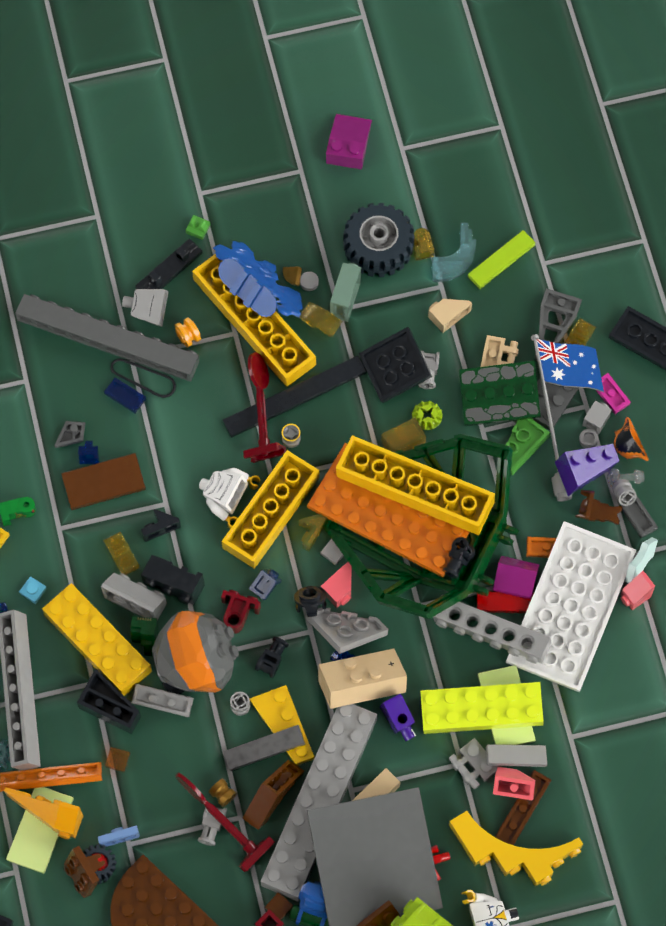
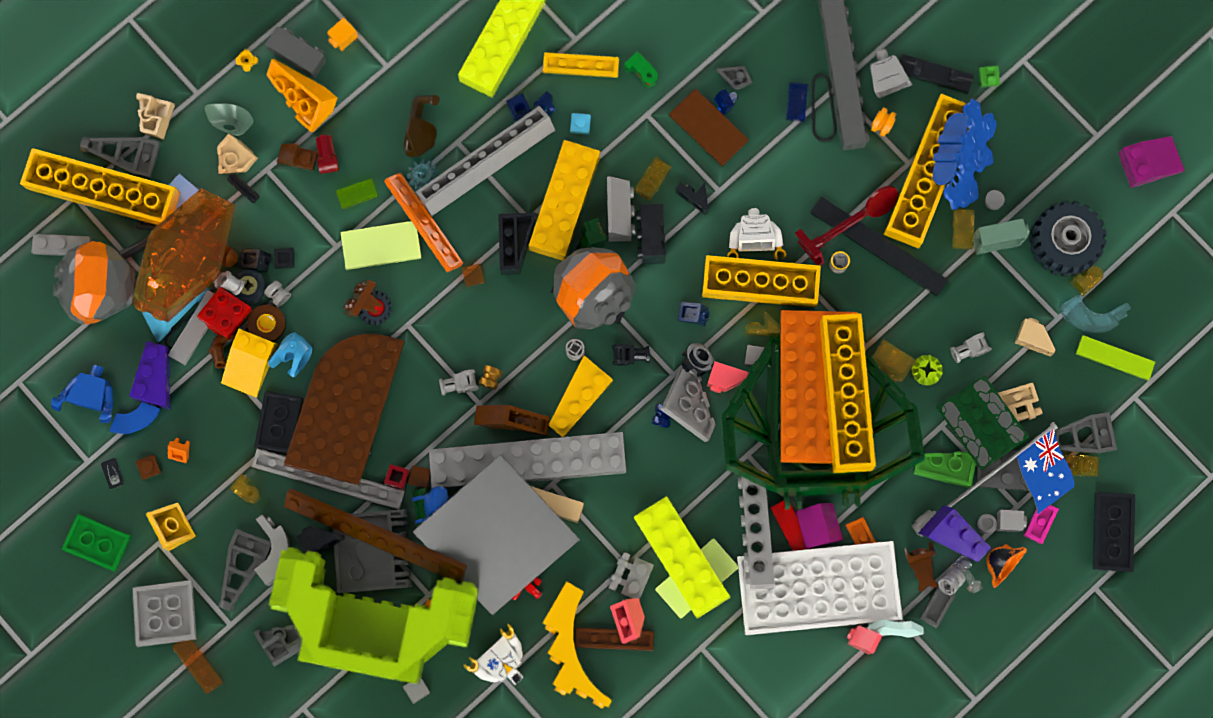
camera: 60 degrees right, 10 degrees up
(58, 816) = (394, 251): light orange wedge -> none
(118, 835) = (408, 311): medium blue plate -> none
(162, 700) = (543, 283): light grey tile -> none
(238, 608) = (657, 302): dark red pin -> none
(254, 851) = (453, 430): dark red piece -> none
(264, 747) = (547, 391): flat silver tile -> none
(292, 275) = (991, 182): pearl gold tile -> none
(362, 678) = (650, 441): tan brick -> none
(395, 365) = (956, 317): black plate -> none
(397, 708) = (641, 483): dark purple torso -> none
(459, 556) = (805, 466): black connector -> none
(516, 755) = (657, 609): light grey tile -> none

